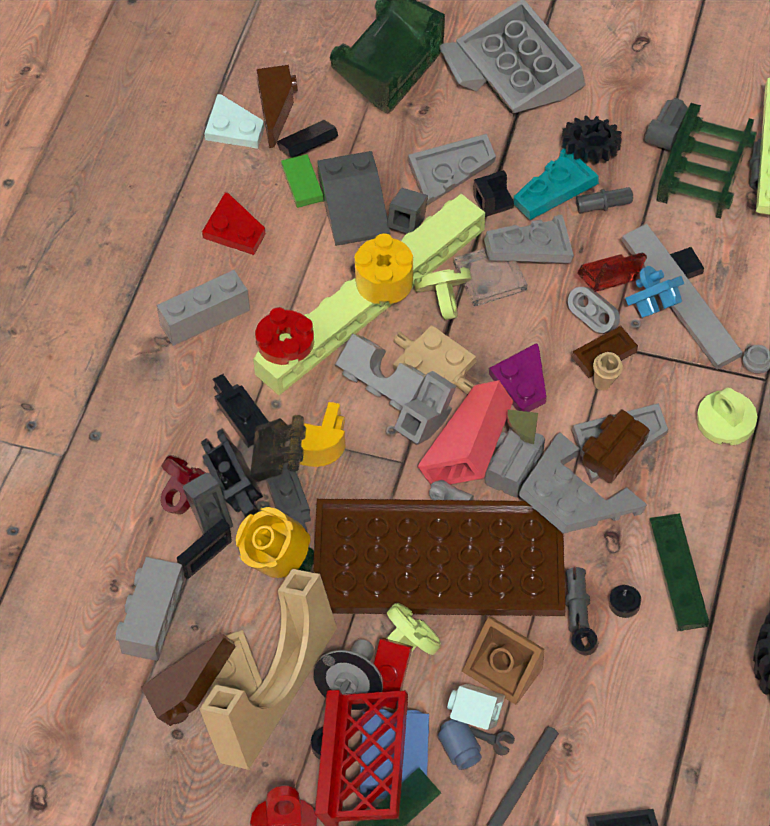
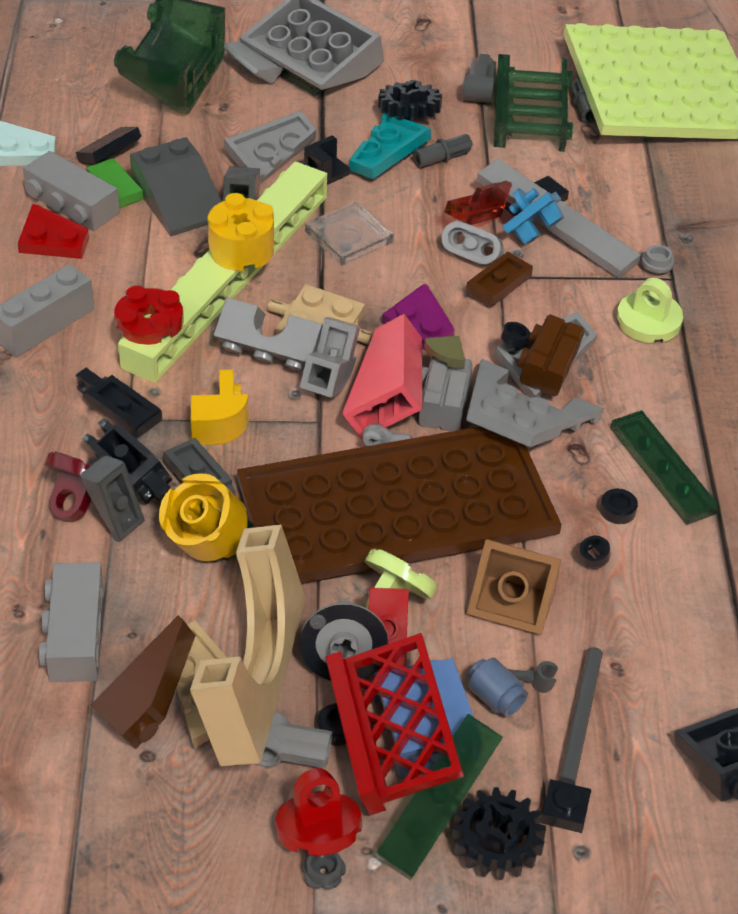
camera: 20 degrees left, 10 degrees down
(205, 548) = (122, 544): black tile -> none
(260, 185) = (71, 190): none -> light grey brick
(270, 448) = (170, 428): clear smoke plate -> none
(276, 98) = (60, 111): reddish brown slope -> none
(287, 754) = (296, 744): none -> light grey piece
(443, 283) = (305, 240): yellowish green tile -> none
(476, 706) = (506, 636): light aqua brick -> none
(531, 243) = (384, 196): light grey wing -> none
(577, 599) = (568, 511): dark grey pin -> none
(589, 420) = (514, 336): none -> black hinge
(606, 369) = (511, 290): tan cone -> none

